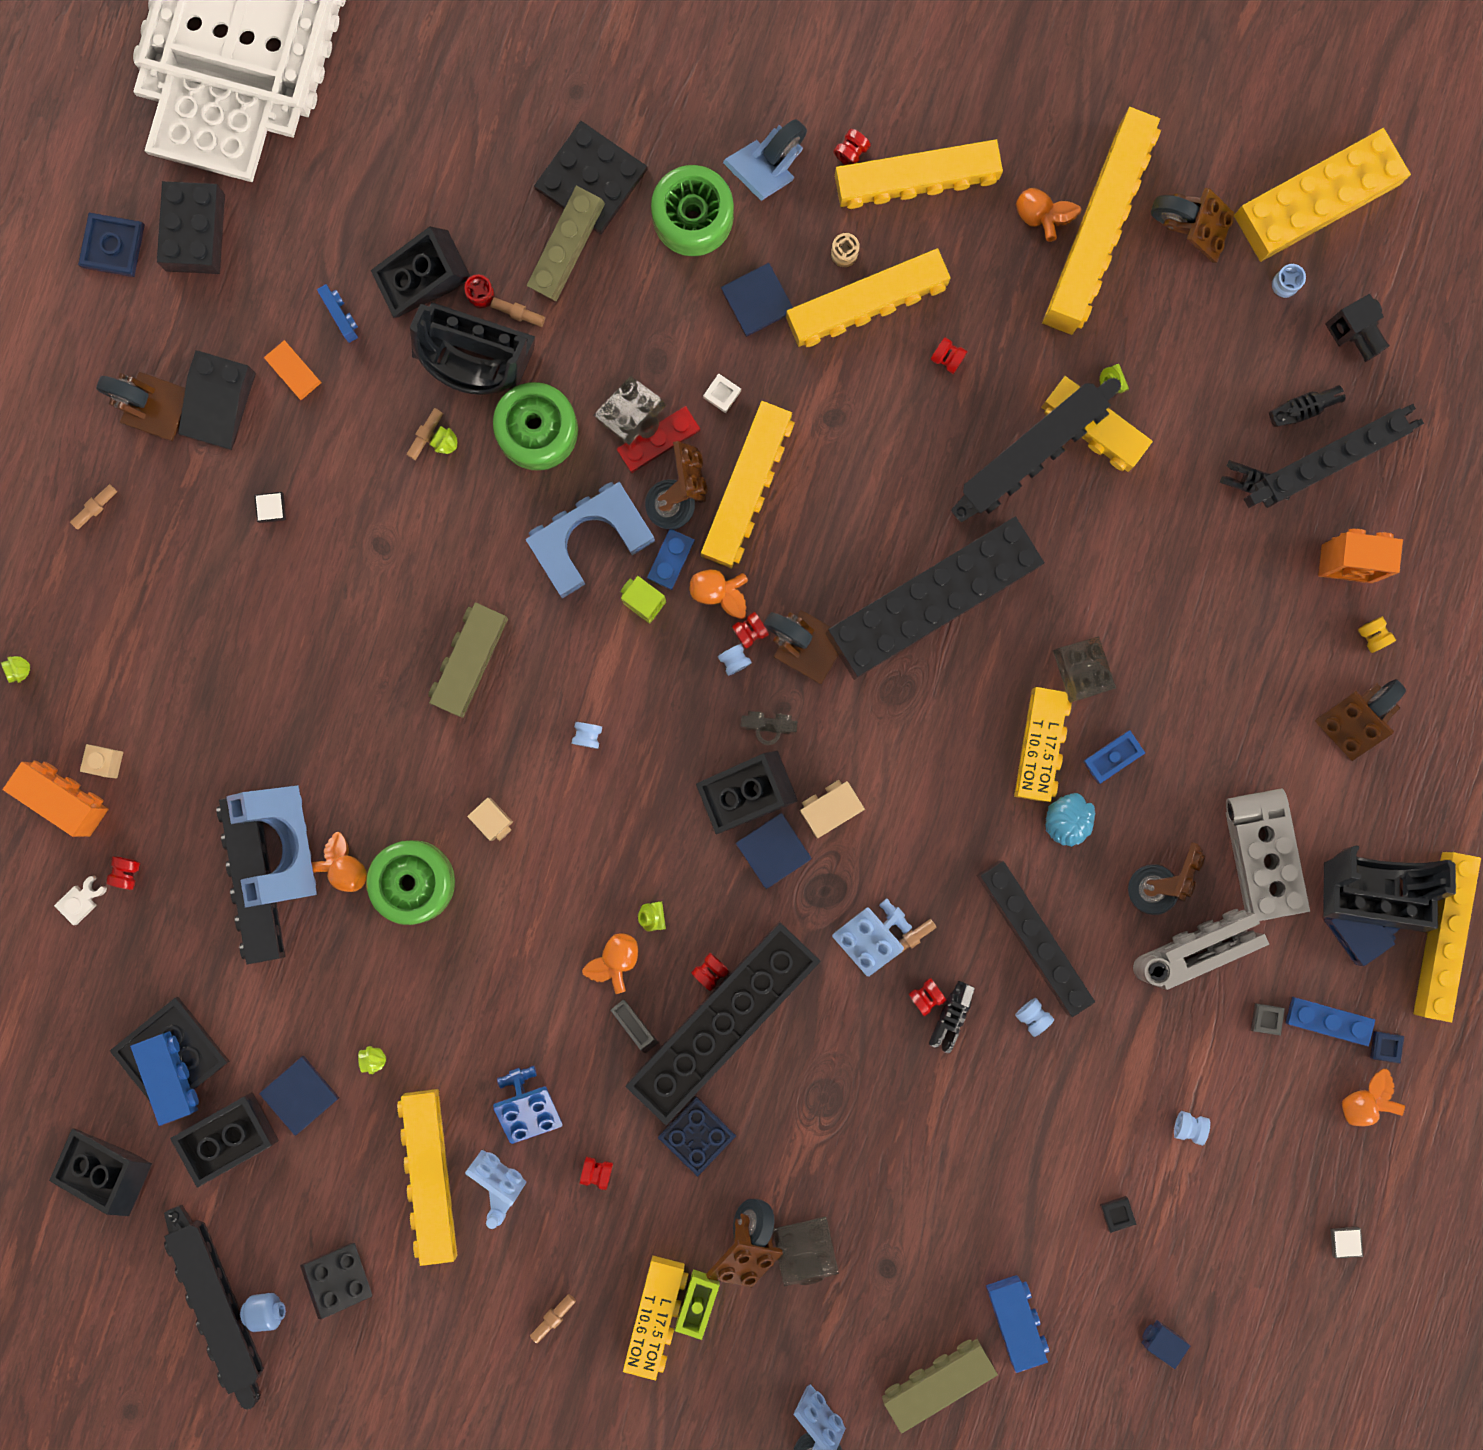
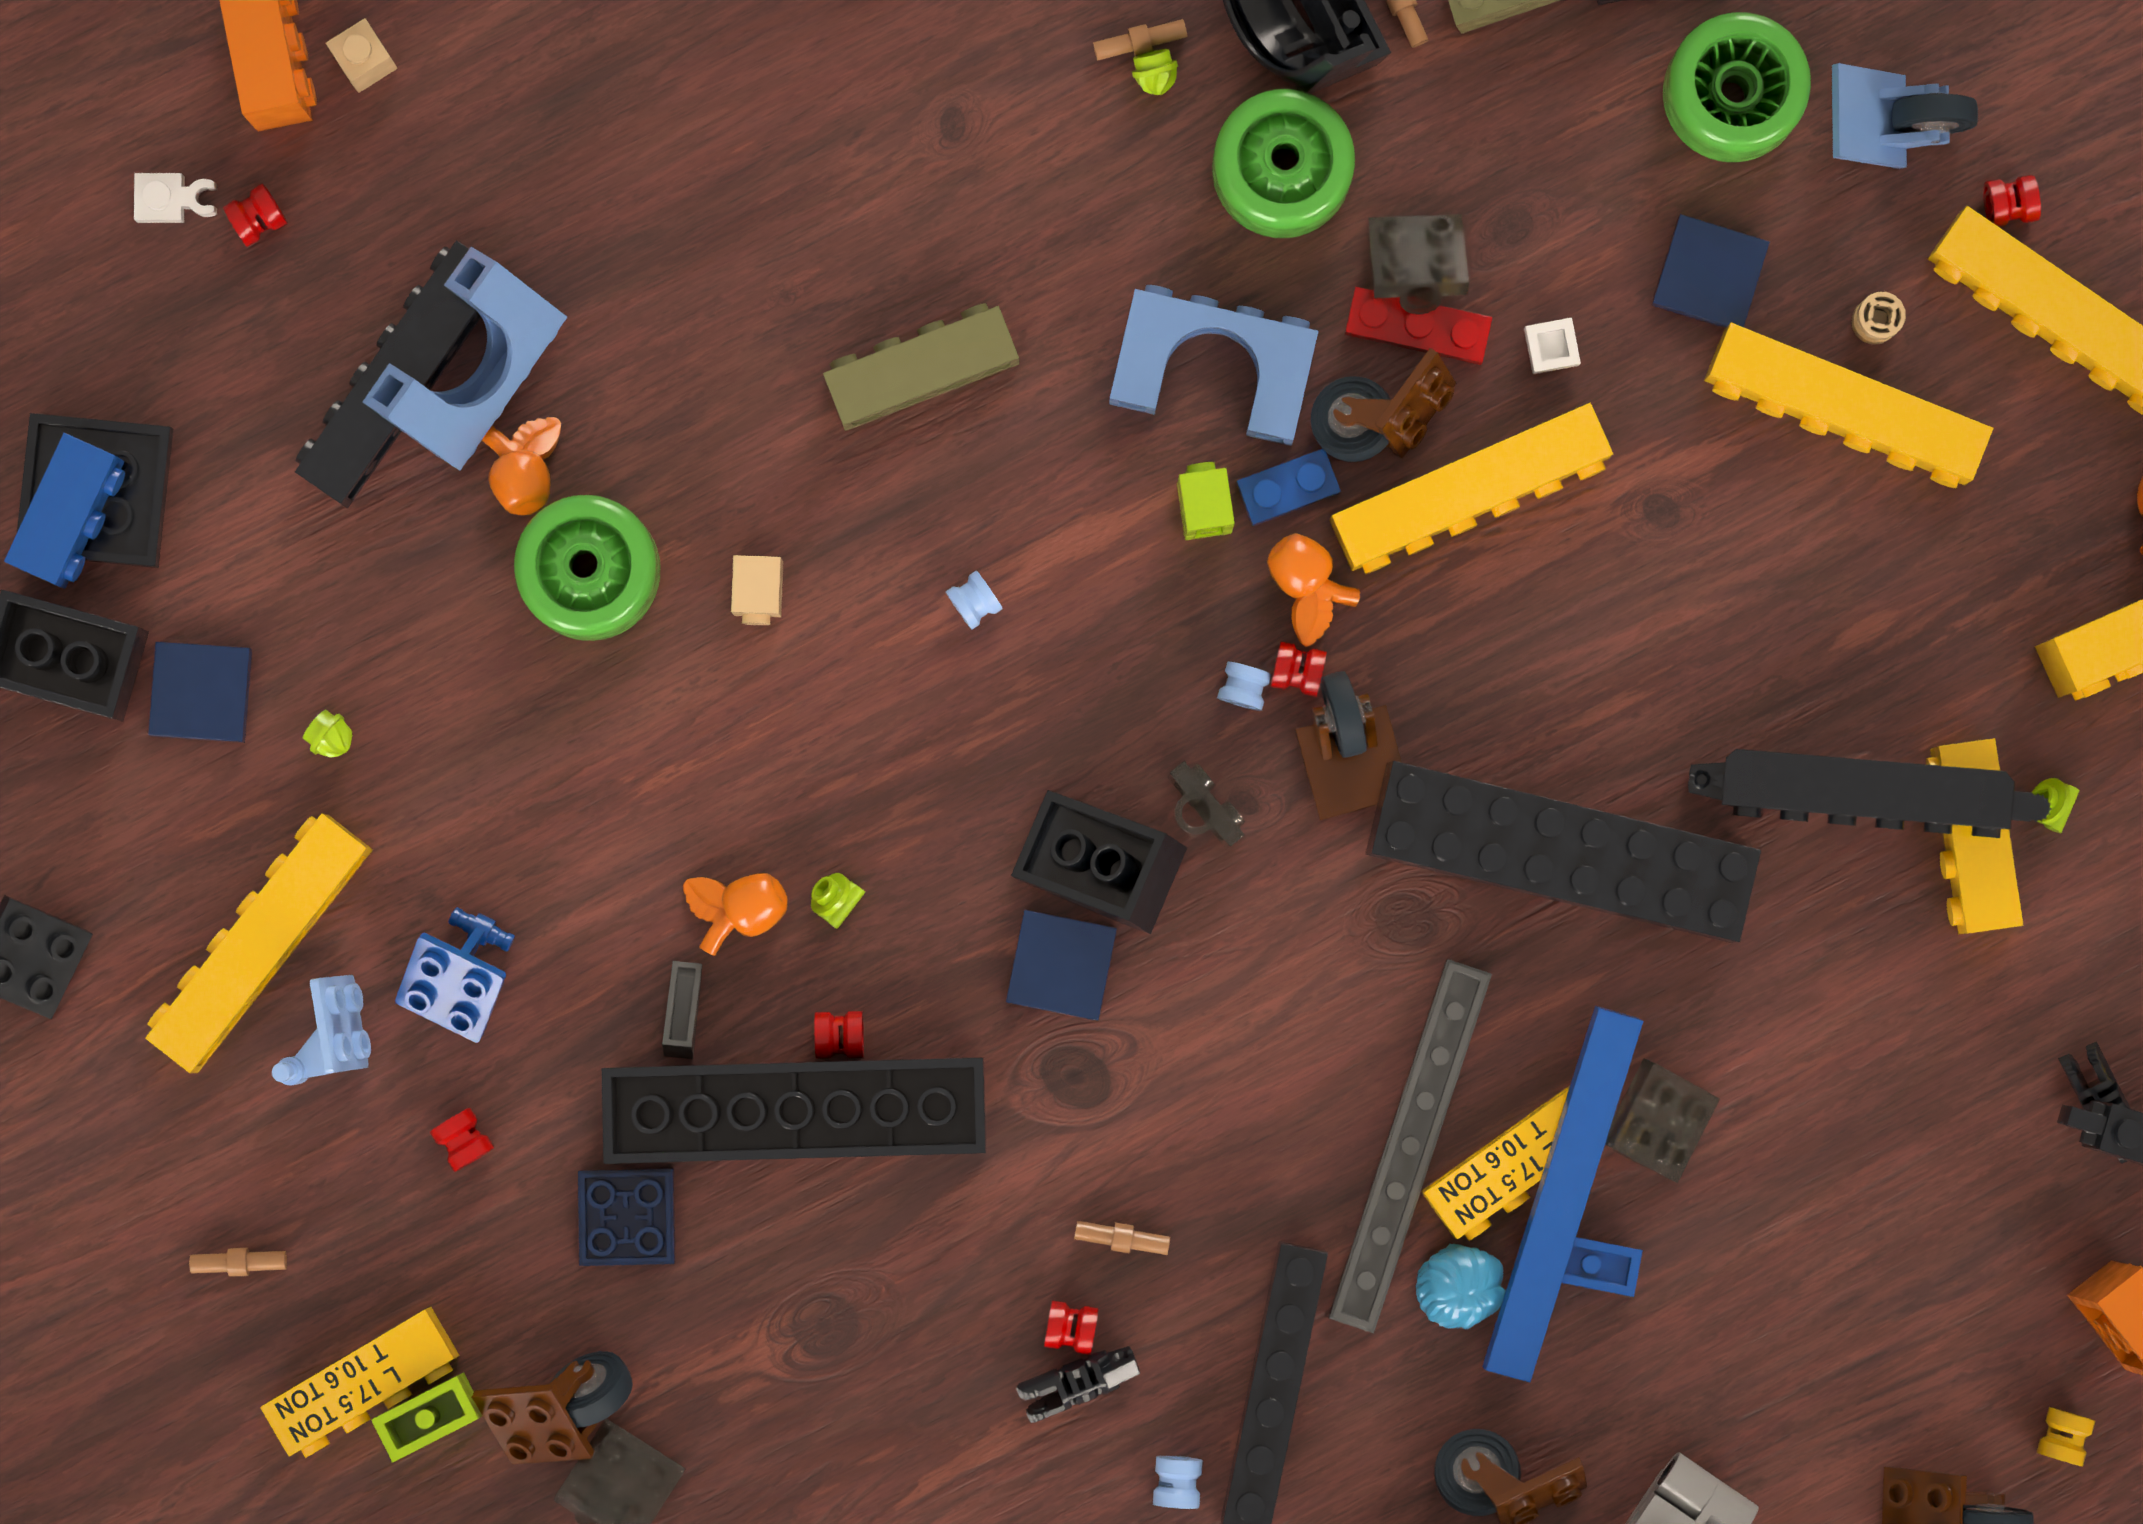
camera: 50 degrees right, 0 degrees up
(831, 809) = (1182, 983): tan brick -> none
(869, 940) = (1070, 1188): light blue plate -> none
(954, 358) = (1881, 583): red wheel -> none
(991, 782) = (1410, 1146): none -> dark grey tile
(1075, 739) = (1562, 1194): none -> blue tile

